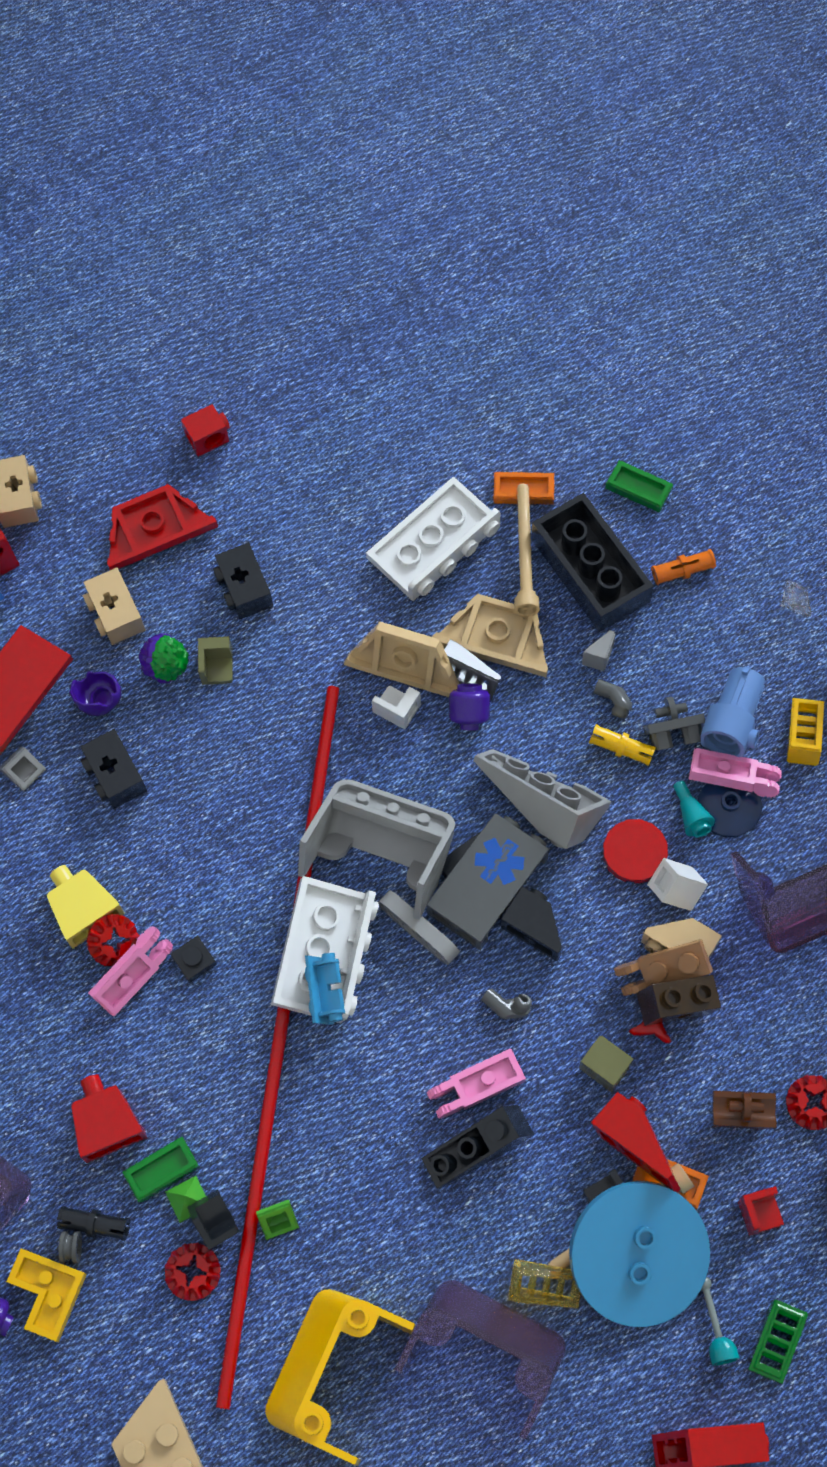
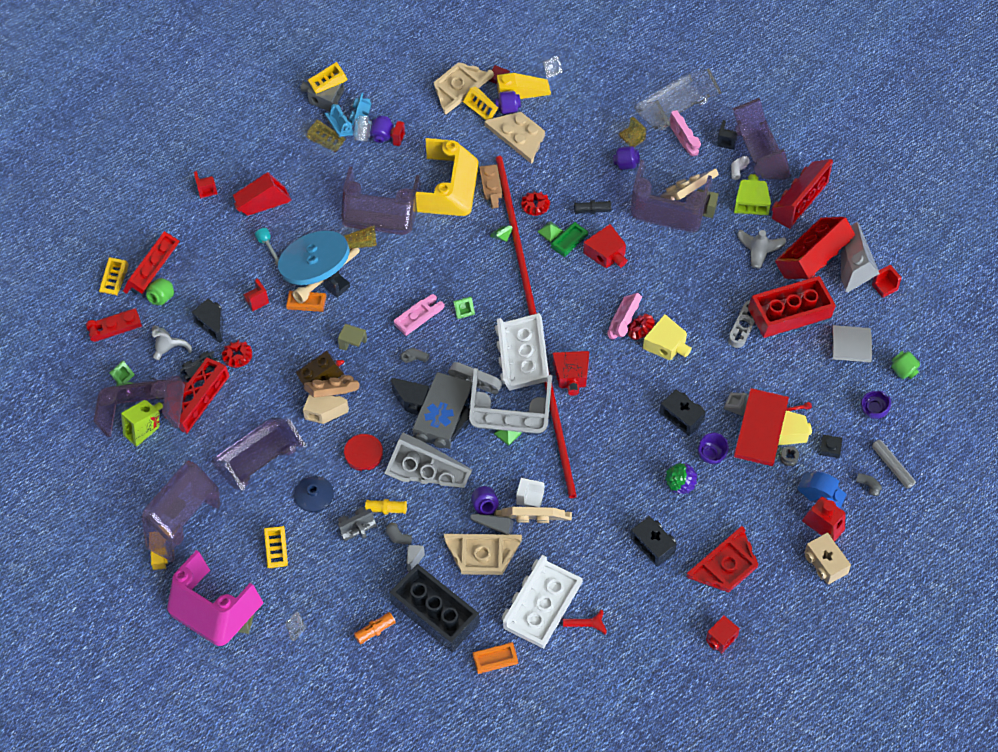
camera: 160 degrees right, 10 degrees down
(56, 1291) = (600, 179): yellow plate -> none
(70, 1247) = (599, 194): dark grey bush -> none
(109, 591) = (727, 503): tan brick -> none
(193, 959) = (594, 334): black plate -> none
(213, 1219) = (532, 219): black panel -> none
(215, 660) = (651, 490): olive panel -> none
(256, 892) = (571, 370): none -> red torso
(258, 1344) = (491, 184): none -> medium nougat hinge
(324, 1004) = (515, 324): dark azure hinge -> none
(371, 498) = (595, 622): none -> red piece
(395, 1074) = (464, 307): none -> slope
(478, 1145) = (407, 287): black slope -> none
(526, 601) = (468, 568): tan piece -> none
(628, 1130) = (327, 304): red slope -> none
(639, 486) = (418, 680): green tile -> none
(677, 884) = (334, 437): white panel -> none
(695, 817) = (332, 477): teal cone -> none
(731, 721) = (322, 528): medium blue piece -> none
(735, 772) = (316, 505): bright pink hinge -> none
(744, 1110) = (273, 334): reddish brown hips -> none
(800, 1317) = (234, 259): green slope -> none

